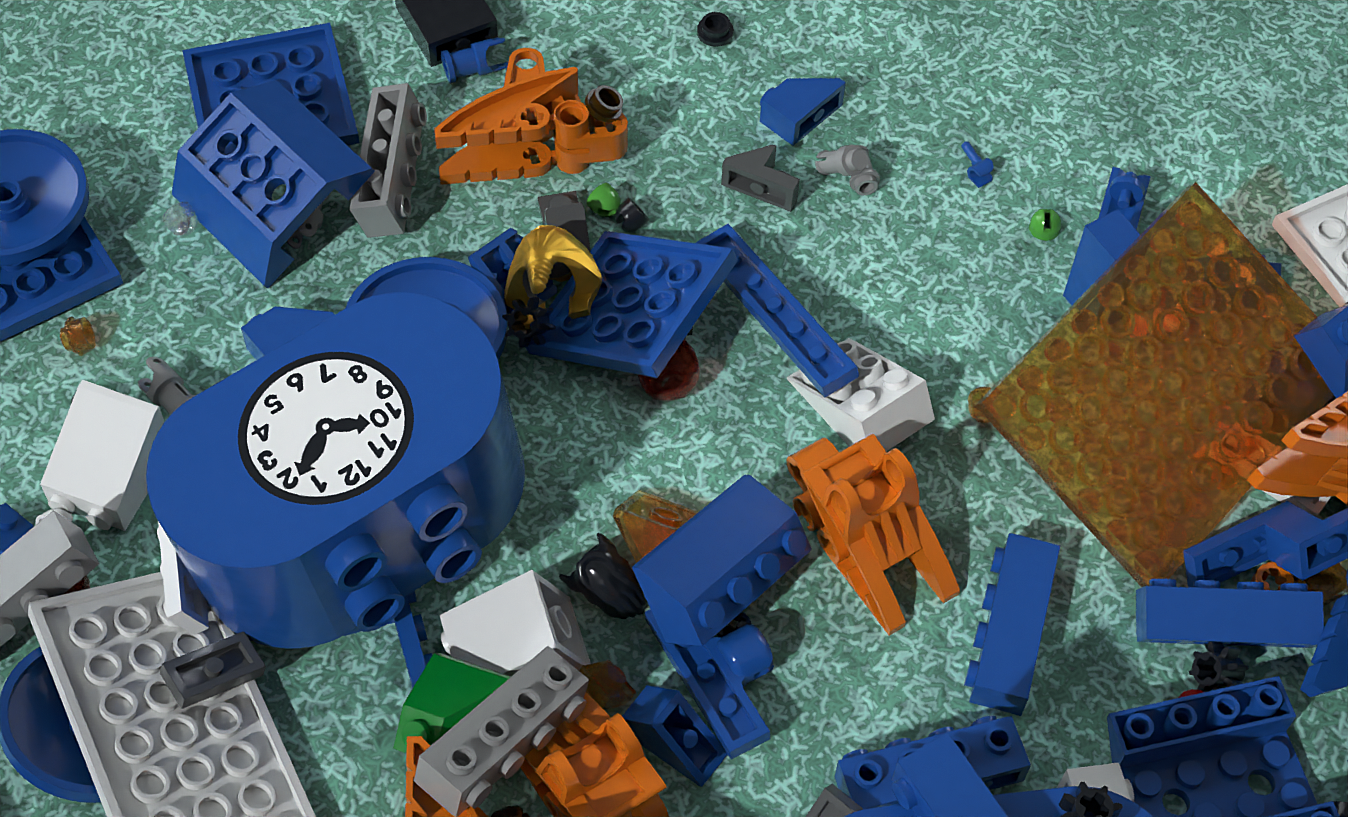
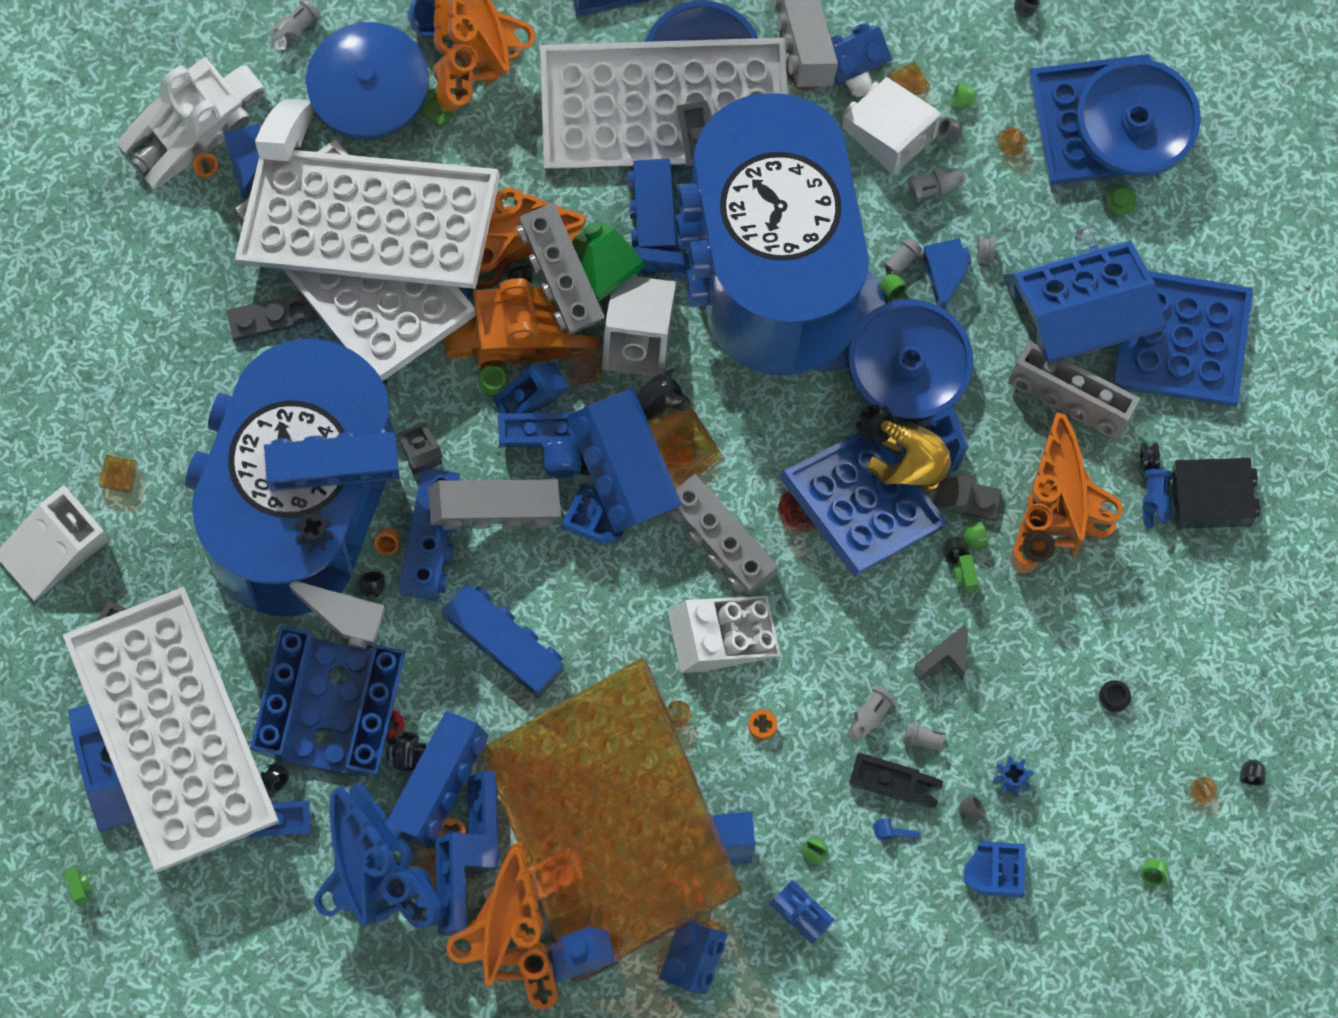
camera: 115 degrees right, 15 degrees up
(27, 471) = (911, 79): none -> clear orange plate
(30, 404) = (963, 95): none -> bright green hinge
(116, 206) = (1120, 200): none -> bright green plate
(238, 309) = (985, 249): none -> light grey bush
(338, 695) = (652, 205): none -> blue brick
(429, 79) = (1149, 456): none -> black bush
(657, 190) = (965, 574): none -> bright green plate
(681, 794) = (493, 380): none -> bright green plate
(749, 432) = (722, 537): none -> light grey brick
(784, 316) = (816, 600): blue plate -> none
(800, 105) = (1002, 716): blue slope -> none
(803, 595) = (588, 517): none -> blue slope
(847, 160) = (929, 719): light grey animal -> none
(859, 77) = (1007, 783): none -> blue gear
(859, 691) = (494, 503): none -> light grey brick
(868, 223) = (866, 717): none -> light grey piece
(869, 520) = (620, 577): orange piece -> none
(913, 105) = (972, 808): none -> dark grey hinge
(926, 182) = (892, 780): none -> black hinge
(943, 310) = (770, 719): none -> orange bush
(963, 60) = (997, 870): none -> blue slope

